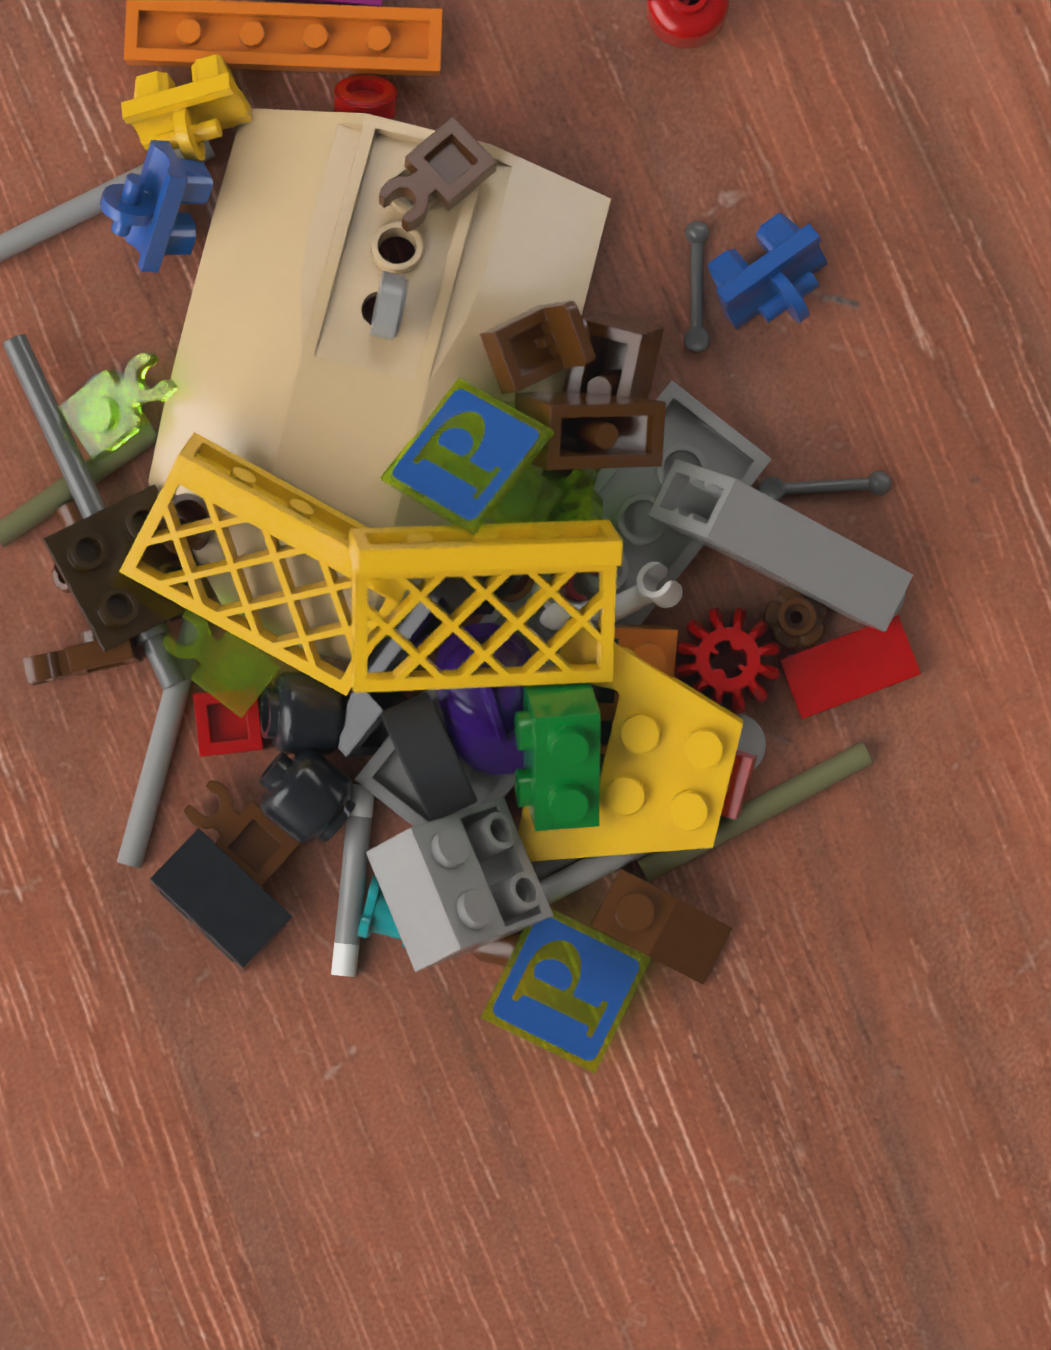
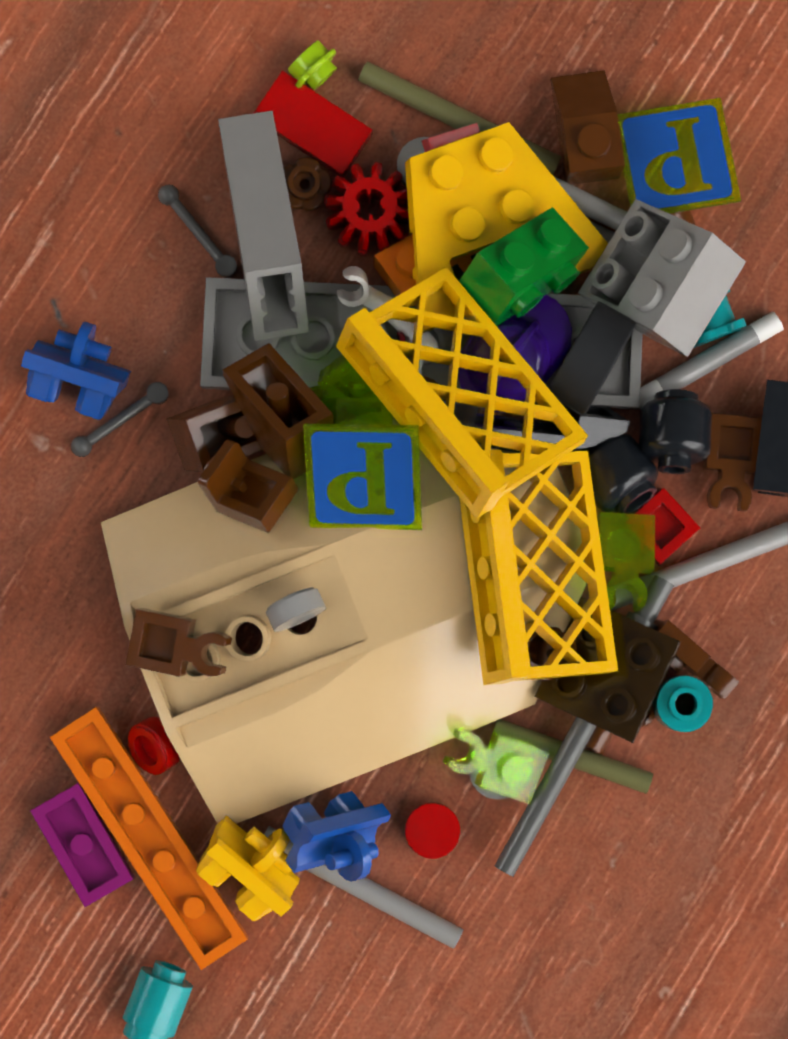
camera: 125 degrees left, 0 degrees up
(63, 628) = (665, 703): none -> teal brick
(100, 303) = (432, 830): none -> red tile
(903, 706) = (313, 66): none -> lime plate

